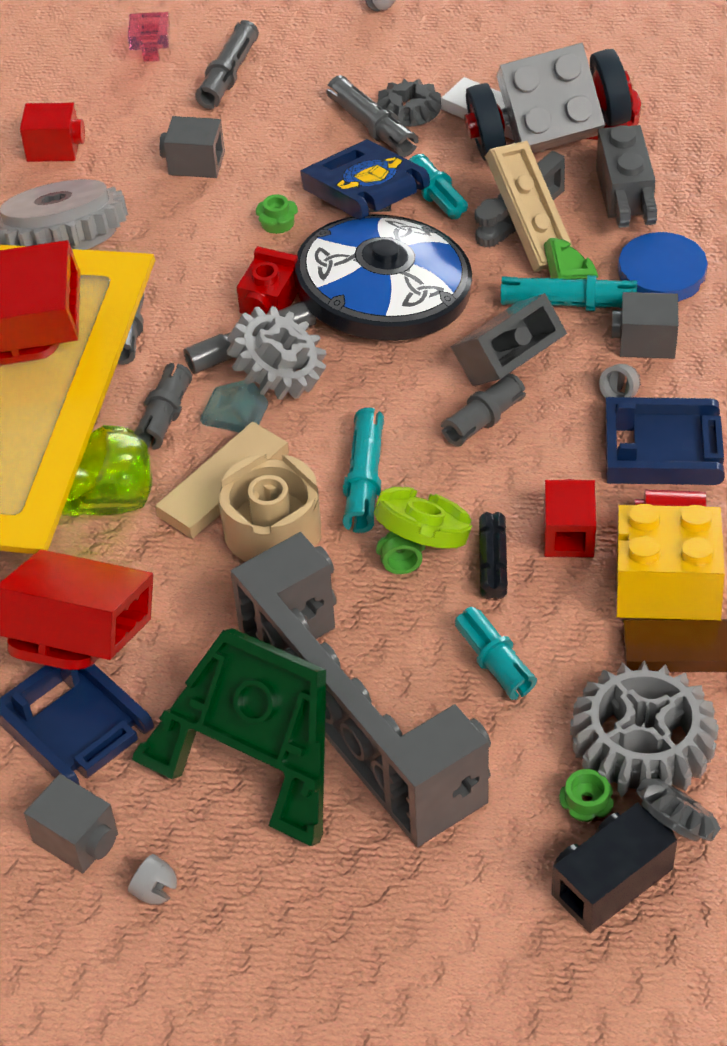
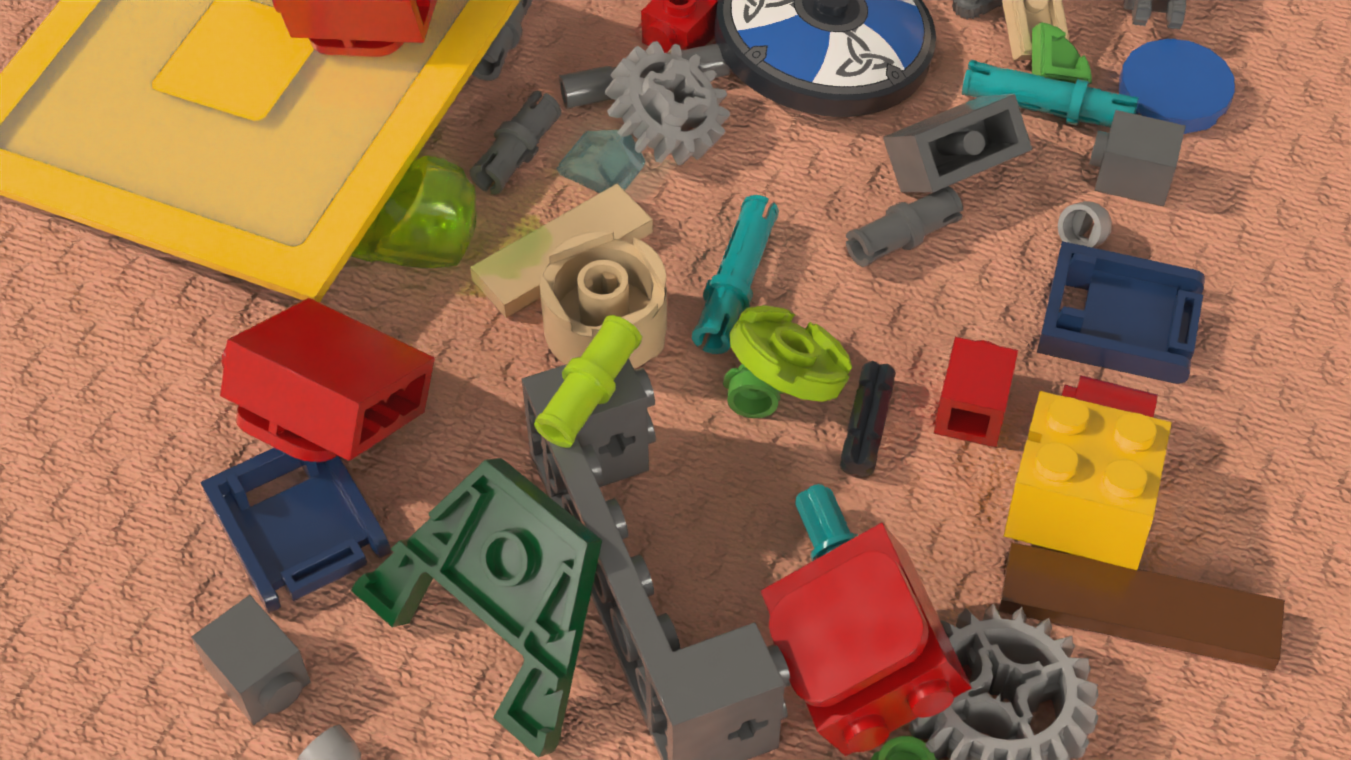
camera: 10 degrees right, 5 degrees up
(284, 559) = (588, 381): none -> lime pin
(535, 706) = (863, 642): none -> red brick

